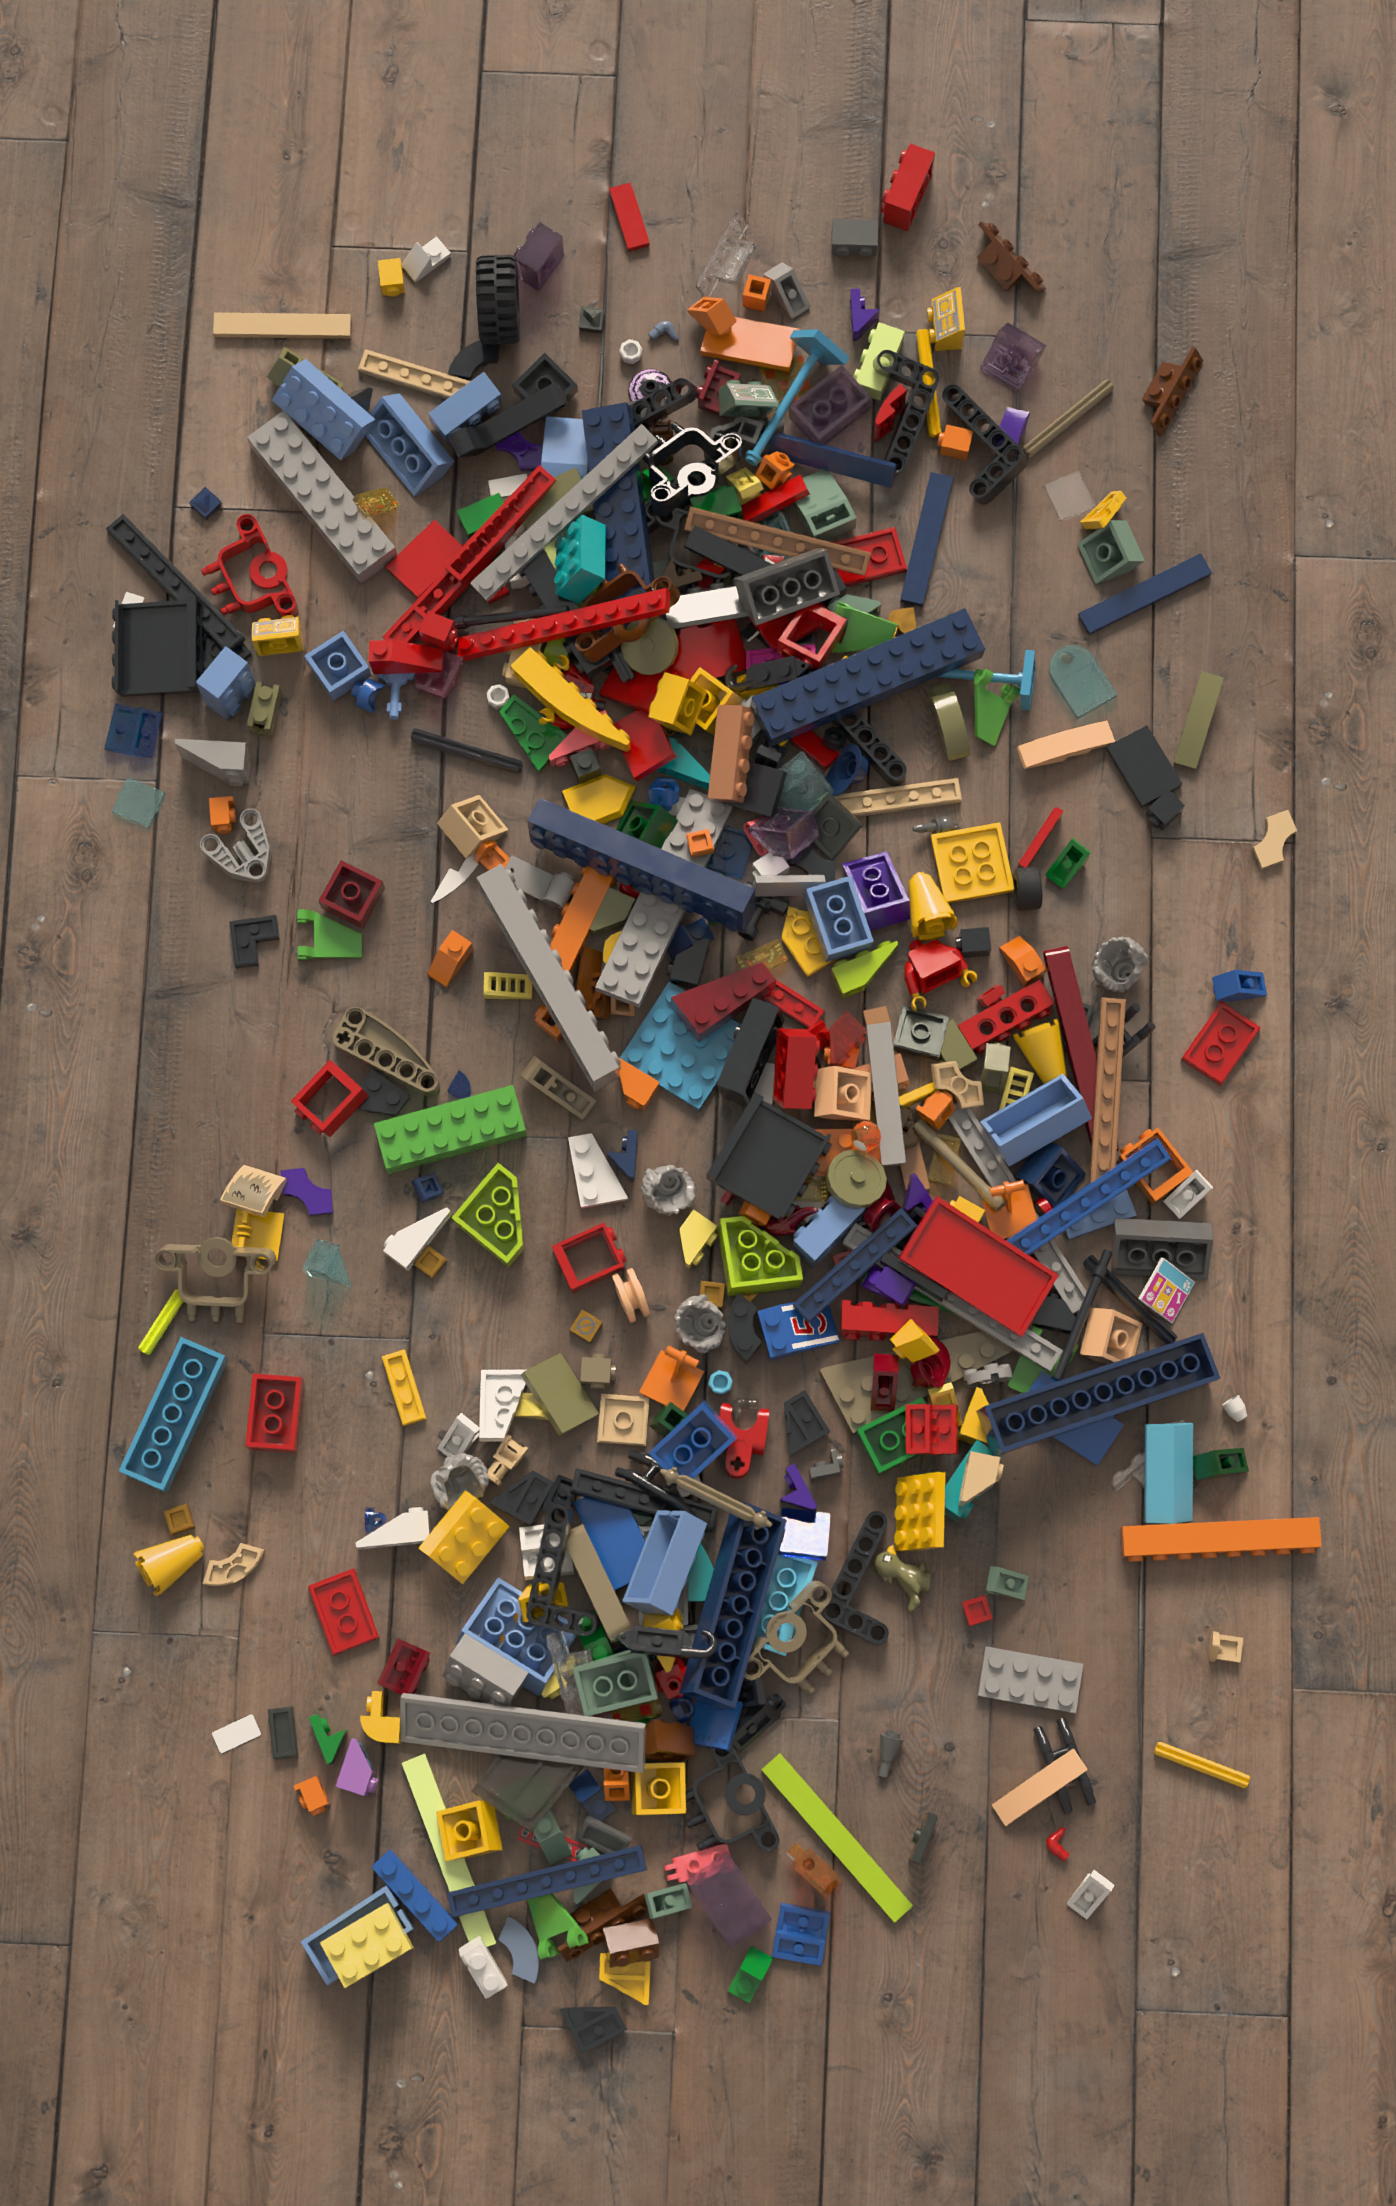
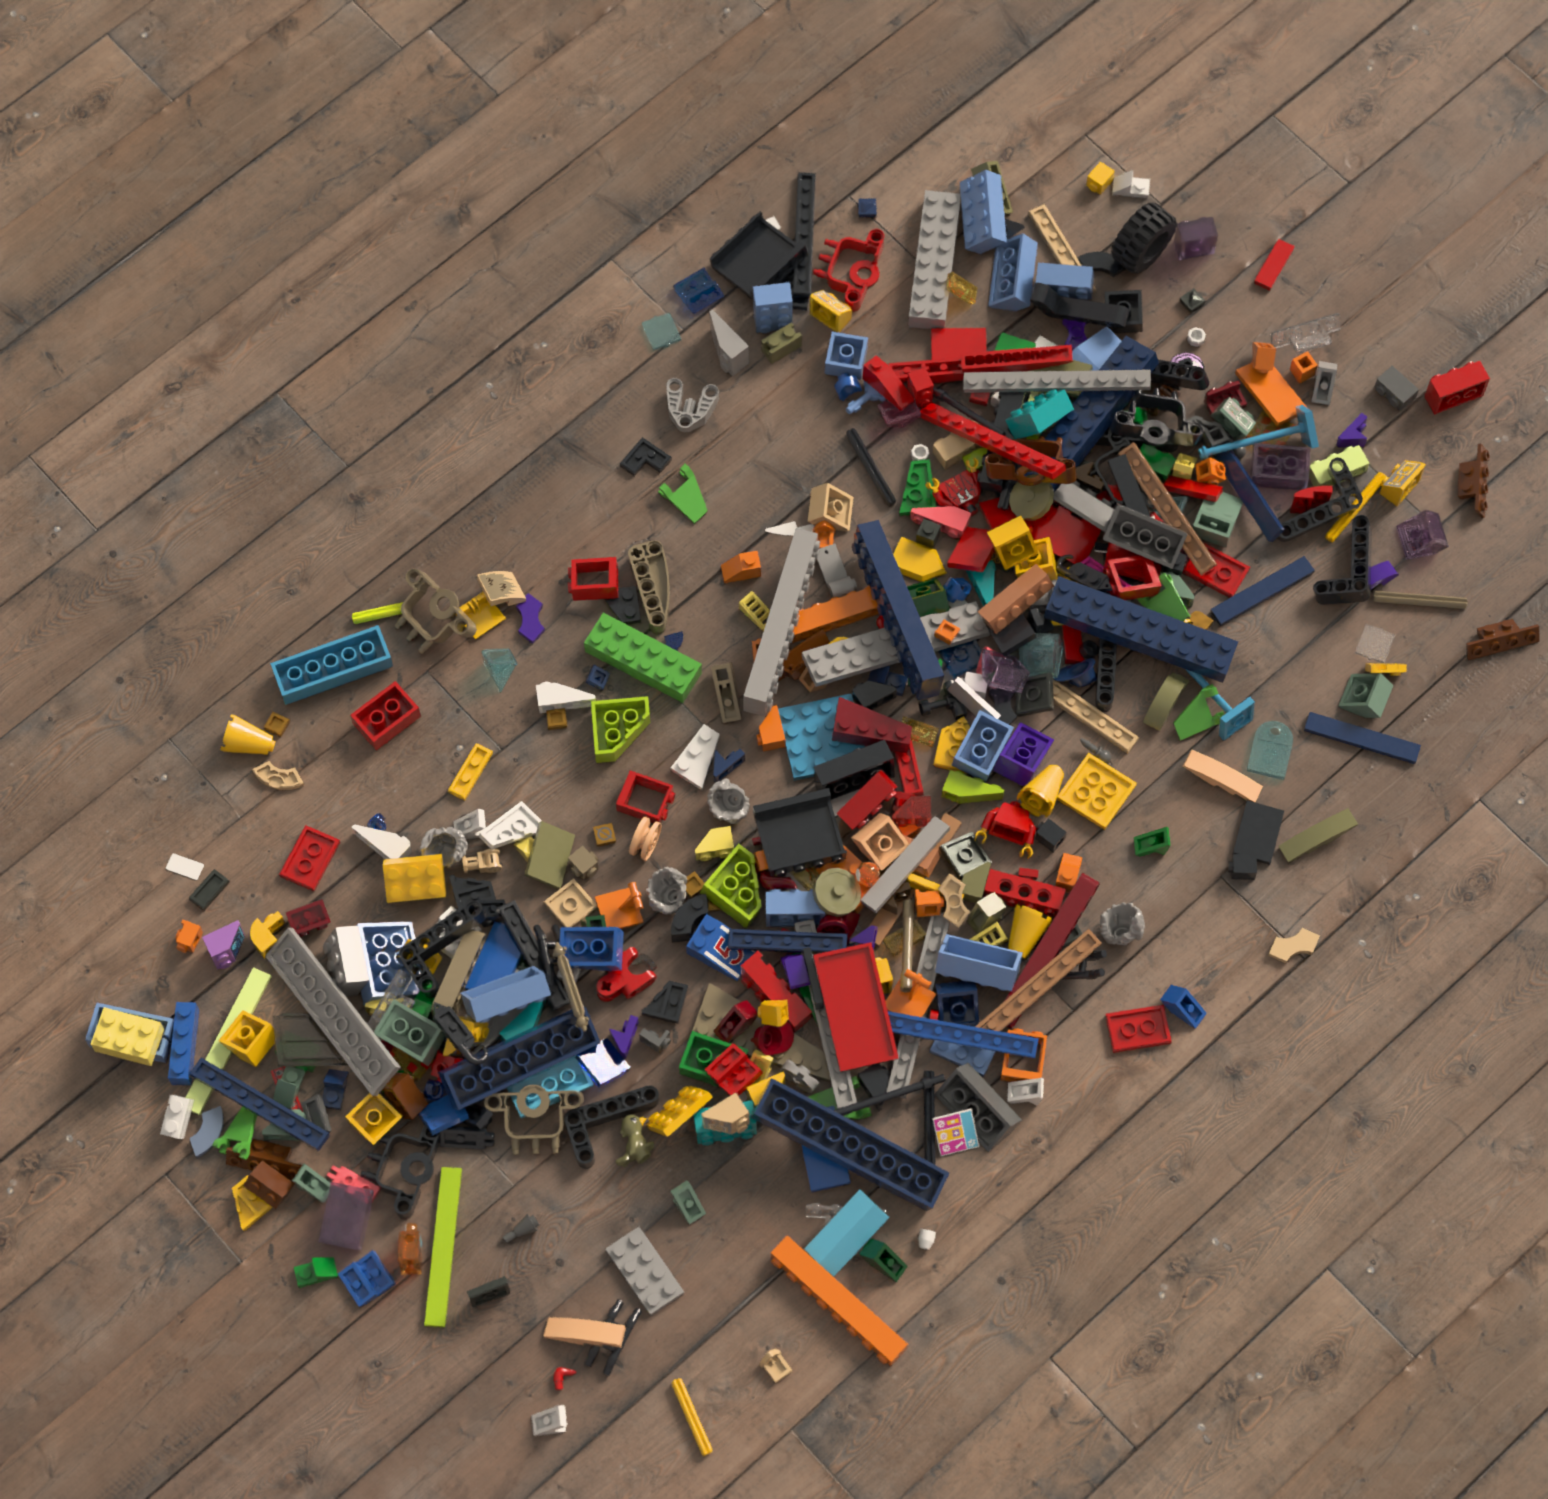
camera: 45 degrees right, 10 degrees down
(222, 814) = (699, 377): orange brick -> none
(282, 325) = (1011, 152): tan tile -> none
(330, 1744) = (226, 914): green slope -> none
(351, 894) = (723, 482): dark red brick -> none
(564, 699) = (952, 484): yellow slope -> none
(593, 2025) = (202, 1211): black wing -> none
(612, 912) = (856, 624): olive slope -> none
(616, 1779) = (357, 1089): orange brick -> none
(662, 327) = (1230, 340): sand blue animal -> none
(720, 1382) = (645, 936): medium azure tile -> none
(955, 442) = (1336, 552): orange brick -> none
(977, 1610) = (655, 1201): red plate -> none
(1027, 888) = (1112, 833): black tyre -> none
(1040, 838) = (1150, 814): red tile -> none
(1110, 1336) = (896, 1124): light nougat slope -> none

